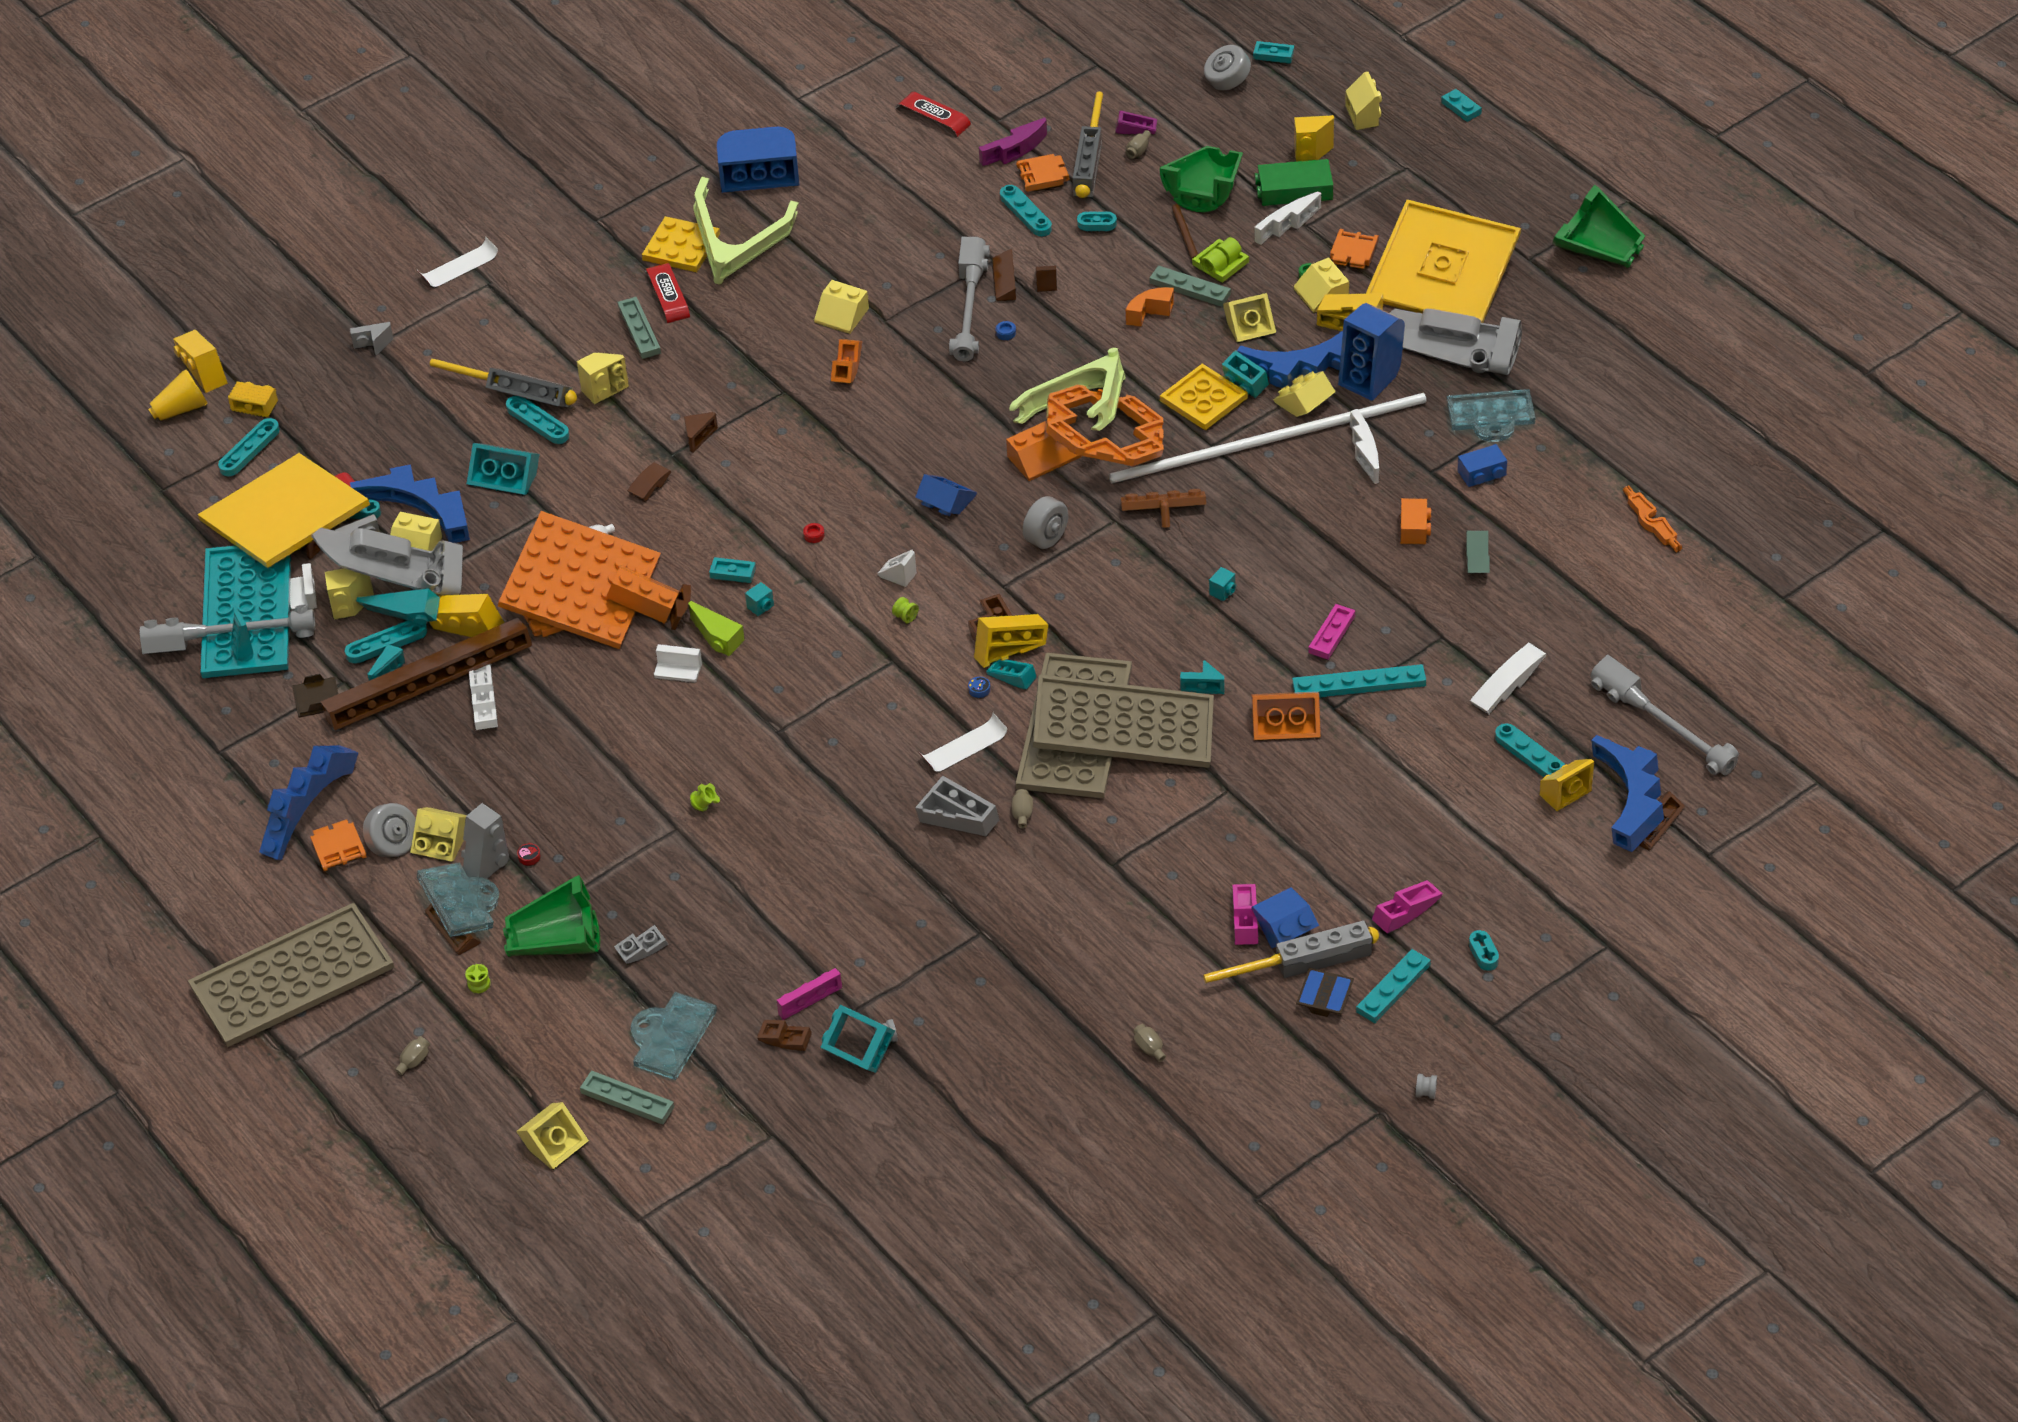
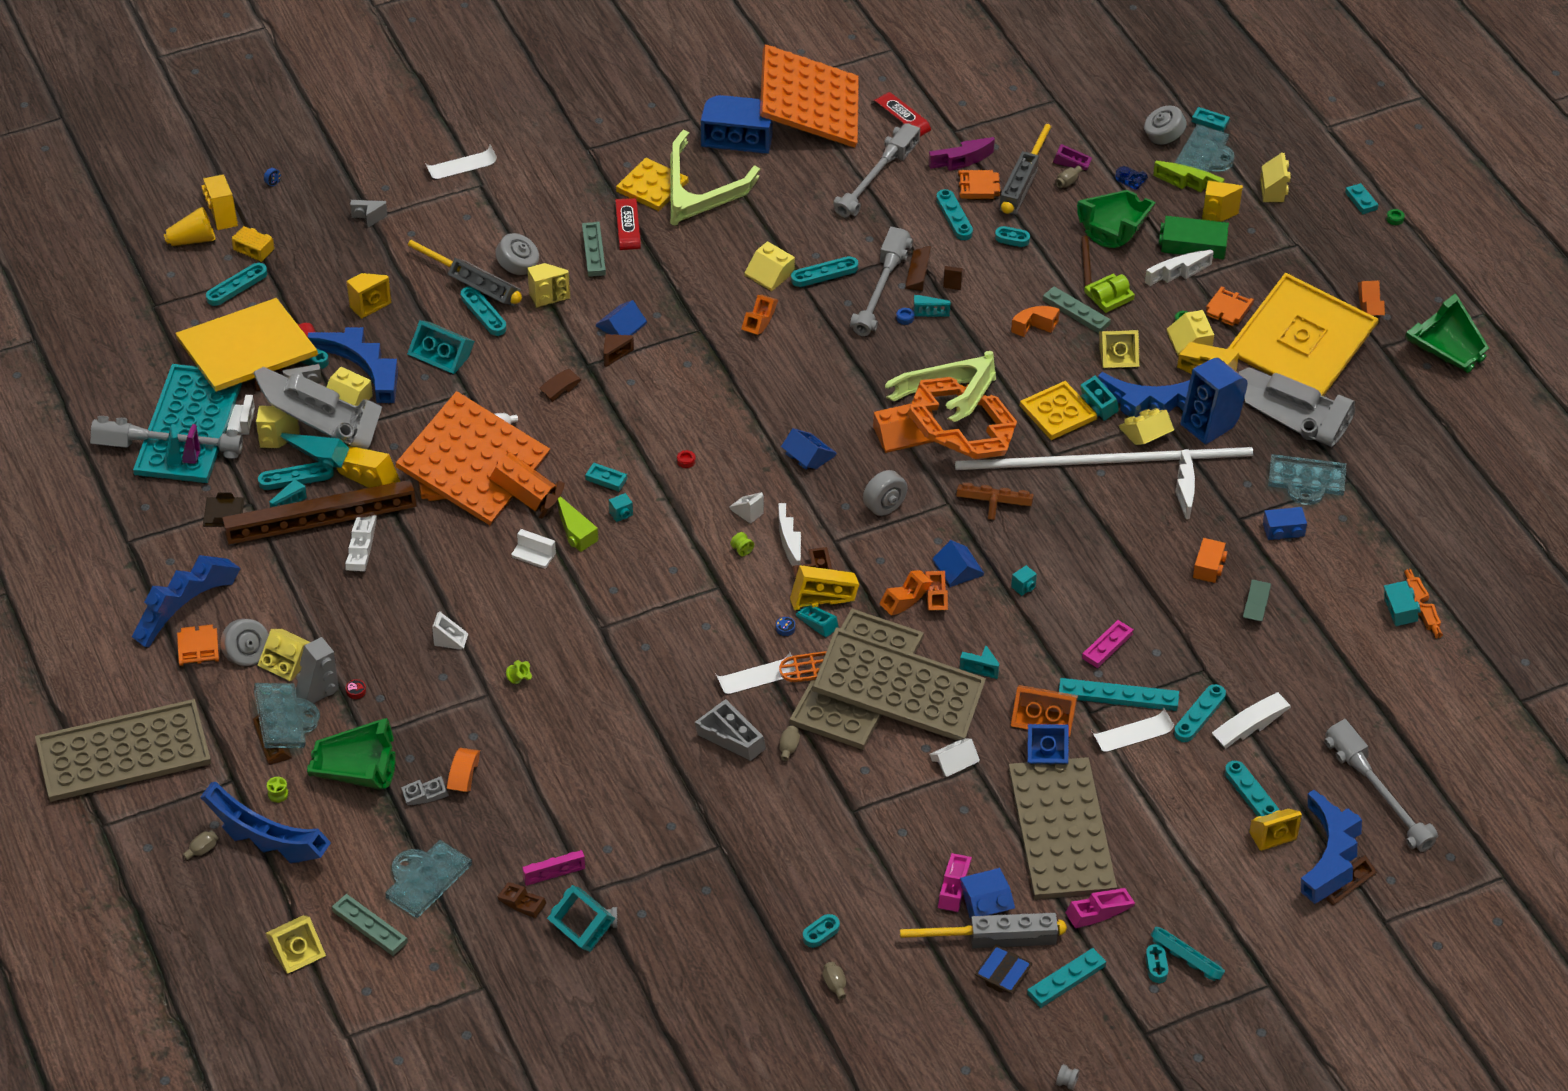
camera: 10 degrees right, 0 degrees up
(250, 321) = (272, 176): none -> blue tile
(261, 633) = (192, 446): none -> magenta slope
(403, 426) = (368, 293): none -> yellow slope
(484, 1028) = (267, 835): none -> blue arch
(556, 350) = (517, 253): none -> light grey wheel
(613, 773) = (448, 633): none -> white slope
(677, 912) = (462, 769): none -> orange brick
(696, 397) = (623, 320): none -> blue slope
(828, 112) = (809, 96): none -> orange plate
(902, 300) = (824, 271): none -> teal plate
(940, 149) = (899, 147): none -> light grey bar
(956, 595) = (790, 540): none -> white slope
(1005, 724) = (797, 672): none -> orange window
(1019, 313) = (924, 307): none -> teal slope
(1095, 631) = (901, 598): none -> orange brick
(1116, 996) = (820, 932): none -> teal plate
(1129, 614) = (937, 594): none -> orange brick
(1144, 582) = (957, 564): none -> blue slope
(1205, 131) = (1130, 177): none -> clear blue plate
(1206, 783) = (956, 756): none -> white panel
(1264, 118) = (1184, 175): none -> lime slope
(1277, 90) = (1206, 150): none -> clear light blue plate
(1301, 748) = (1048, 744): none -> blue slope
(1341, 833) = (1062, 829): none -> dark tan plate
(1388, 717) = (1134, 732): none -> white sticker
(1451, 683) = (1199, 713): none -> teal plate
(1502, 209) = (1370, 297): none -> orange brick
(1503, 117) = (1395, 217): none -> green tile
(1522, 936) = (1193, 957): none -> teal plate
(1630, 522) = (1401, 603): none -> teal brick

